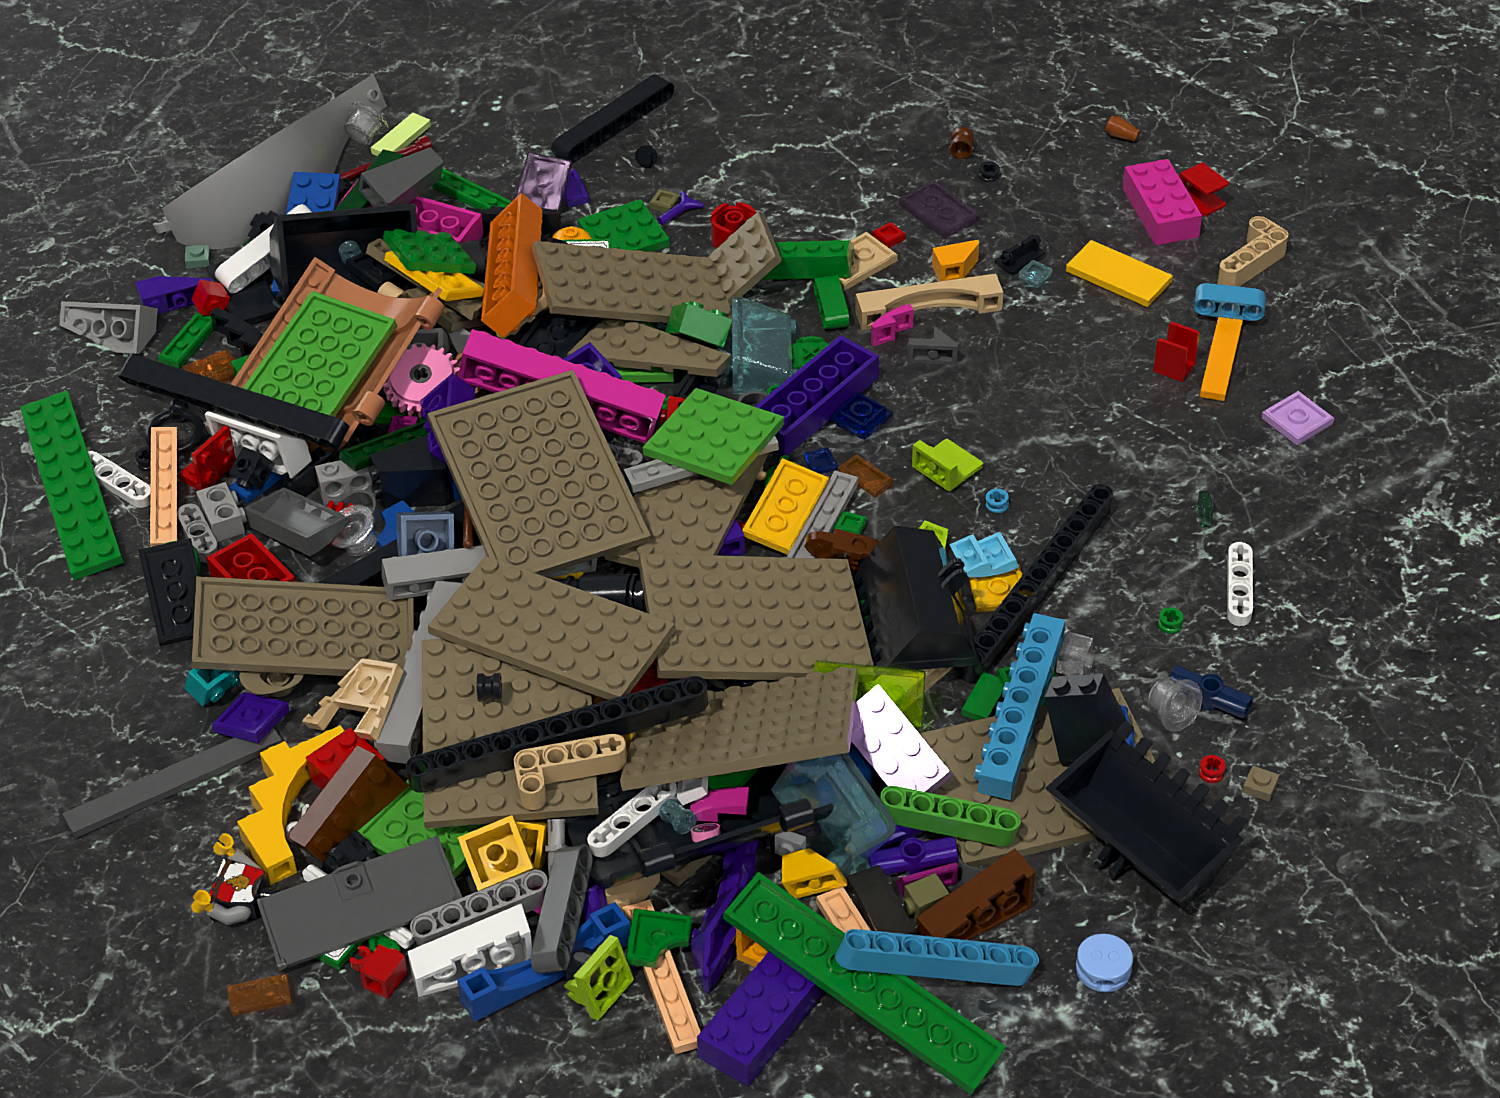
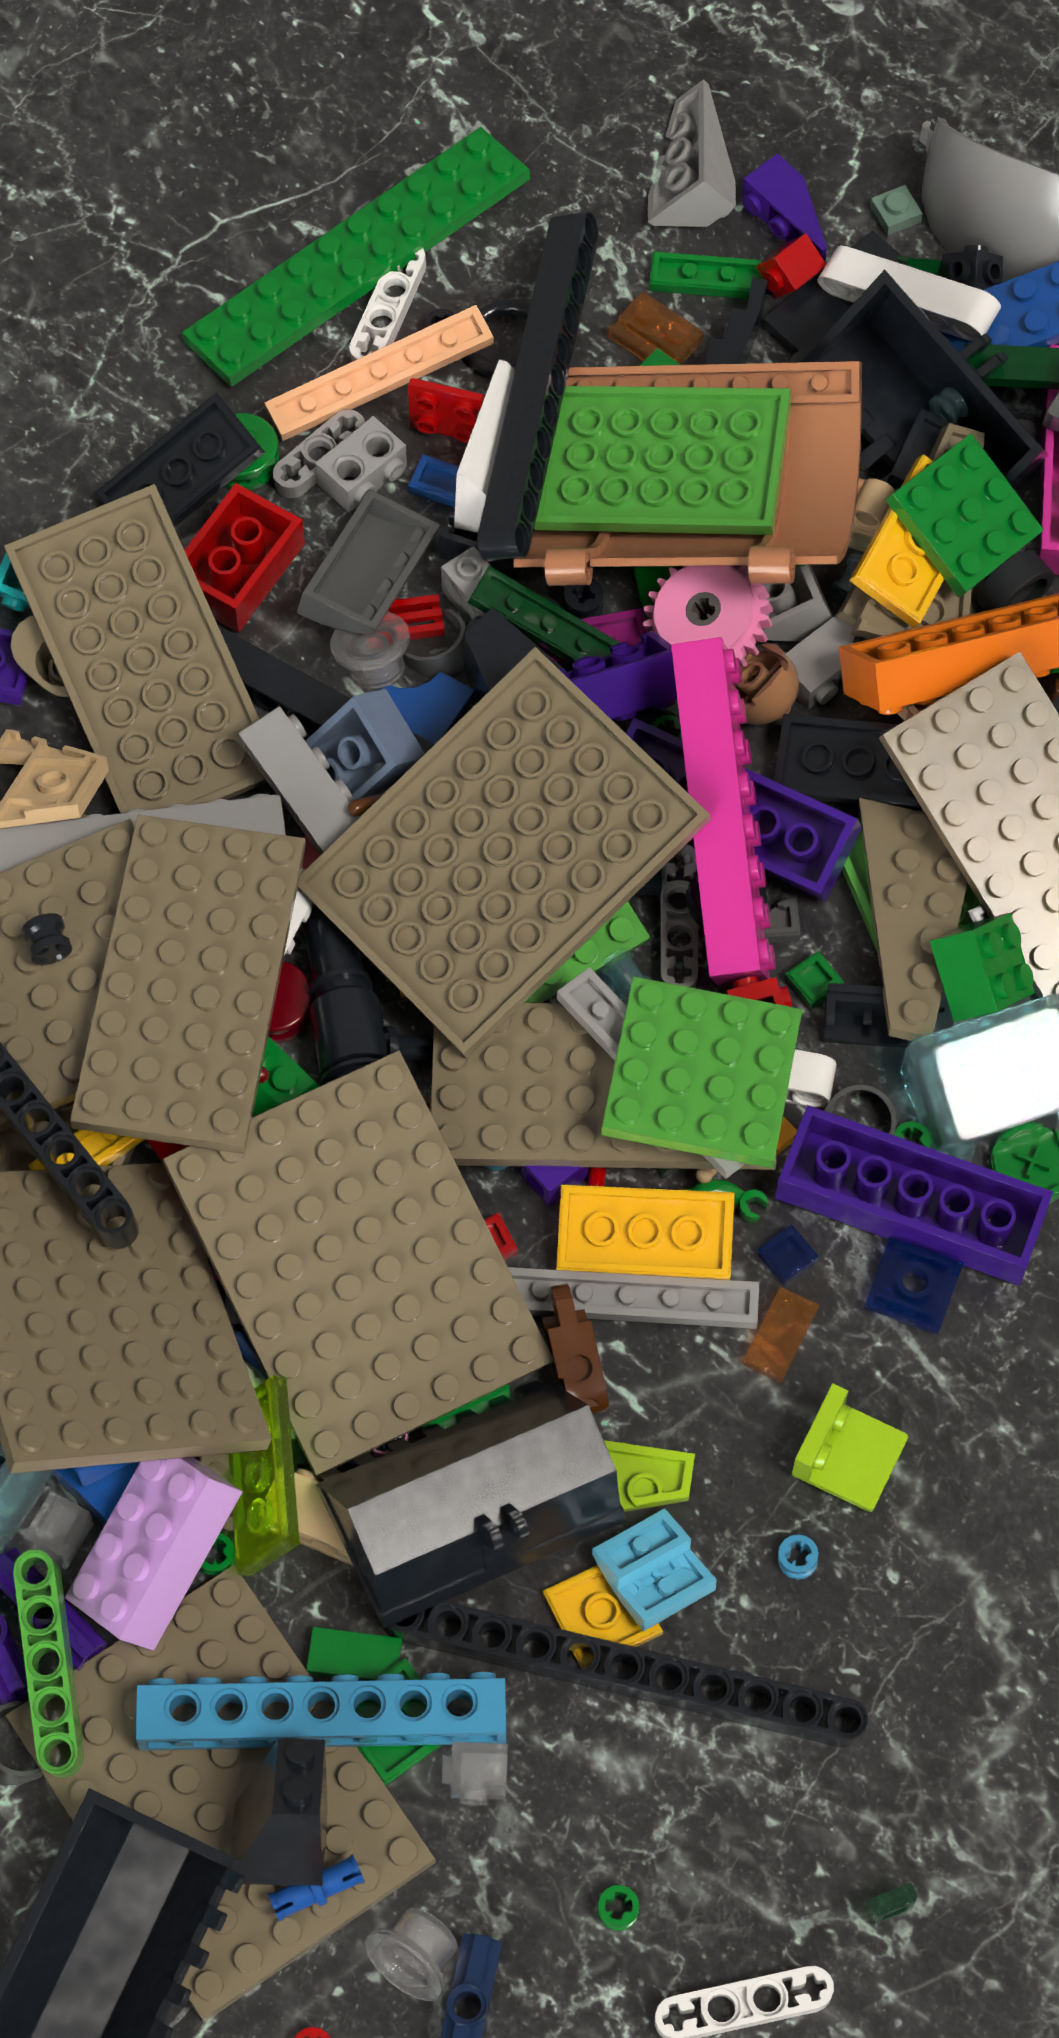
camera: 70 degrees right, 20 degrees up
(251, 469) = (434, 466): black brick -> none
(851, 522) = (659, 1344): green tile -> none

